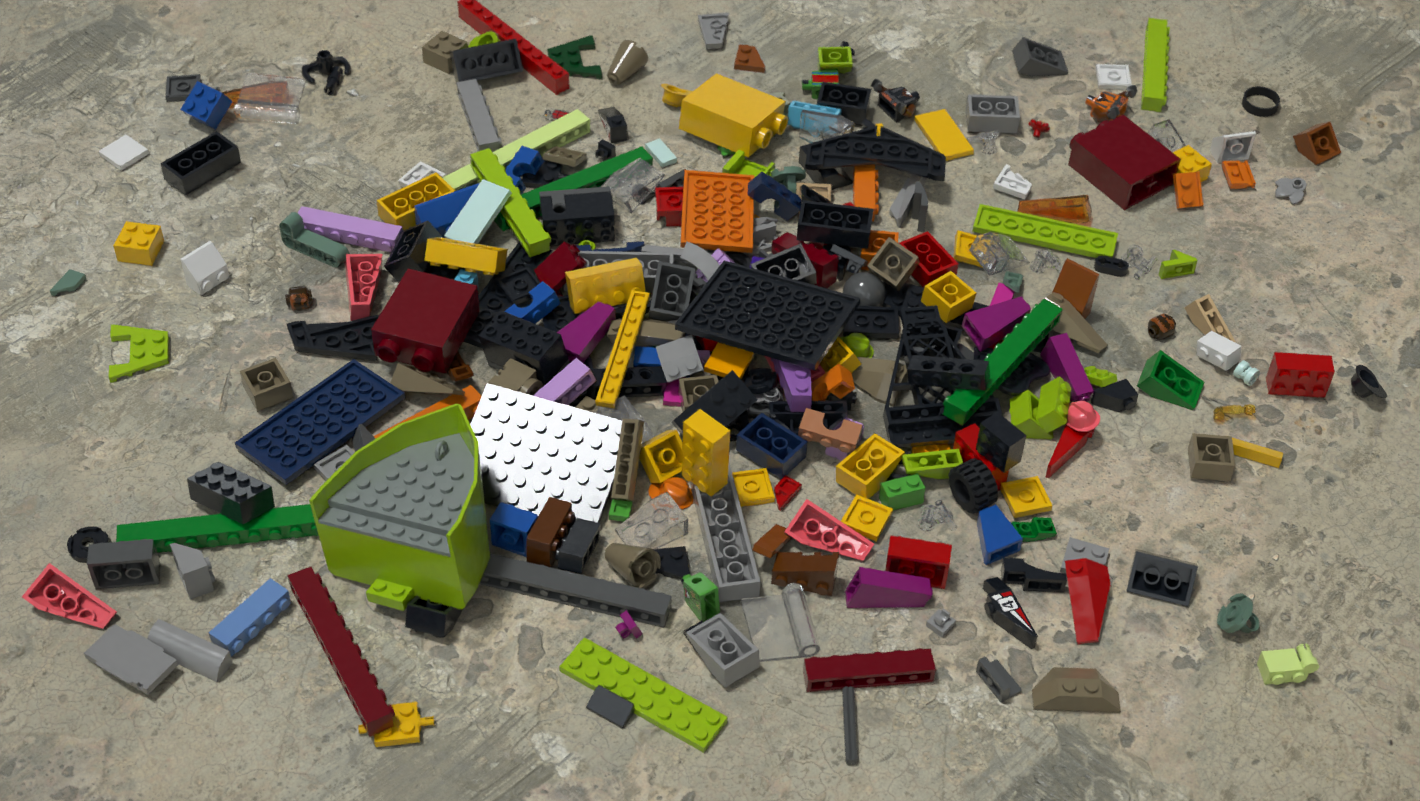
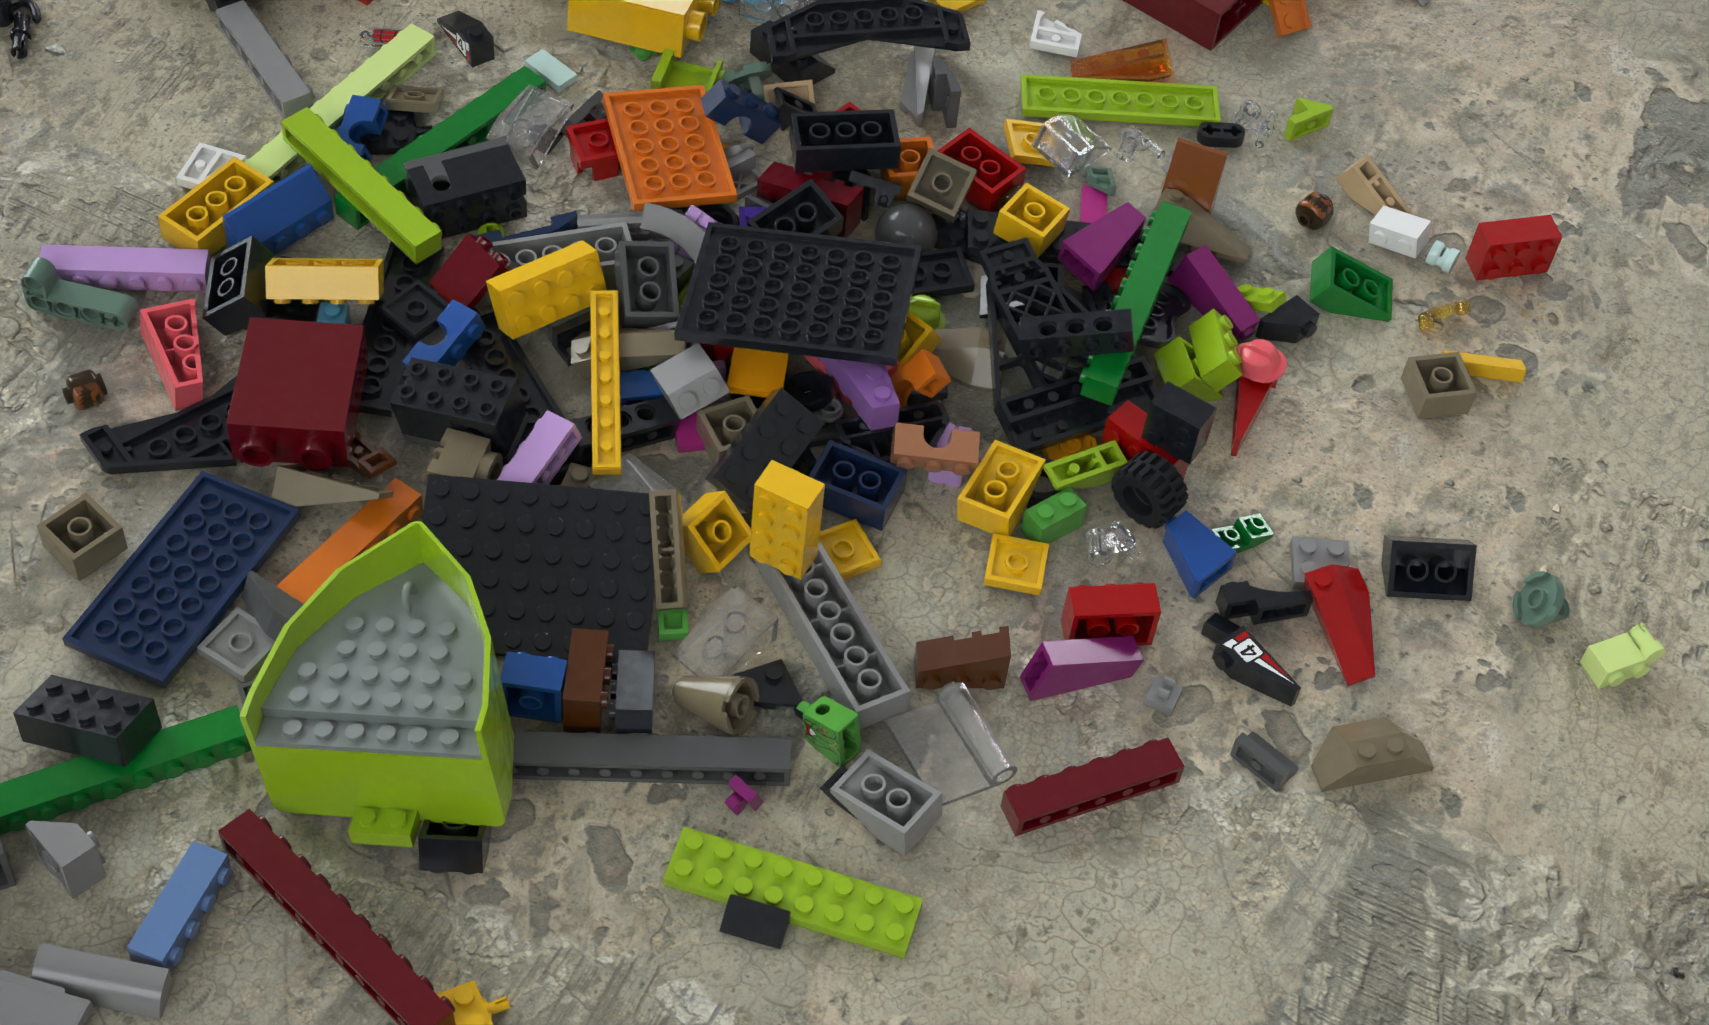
camera: 20 degrees left, 5 degrees up
(478, 212) = (321, 210): light aqua tile -> none
(586, 331) = (541, 363): magenta slope -> none
(605, 150) = (472, 80): black tile -> none
(677, 489) = (740, 573): orange piece -> none
(772, 541) = (904, 626): dark orange tile -> none
(785, 491) = (892, 547): red tile -> none
(823, 531) = (963, 596): coral wedge -> none
(850, 733) = (1091, 872): dark grey axle -> none
(865, 187) = (859, 77): orange brick -> none
(1026, 496) = (1218, 489): yellow plate -> none
(1366, 383) = (1595, 245): black piece -> none

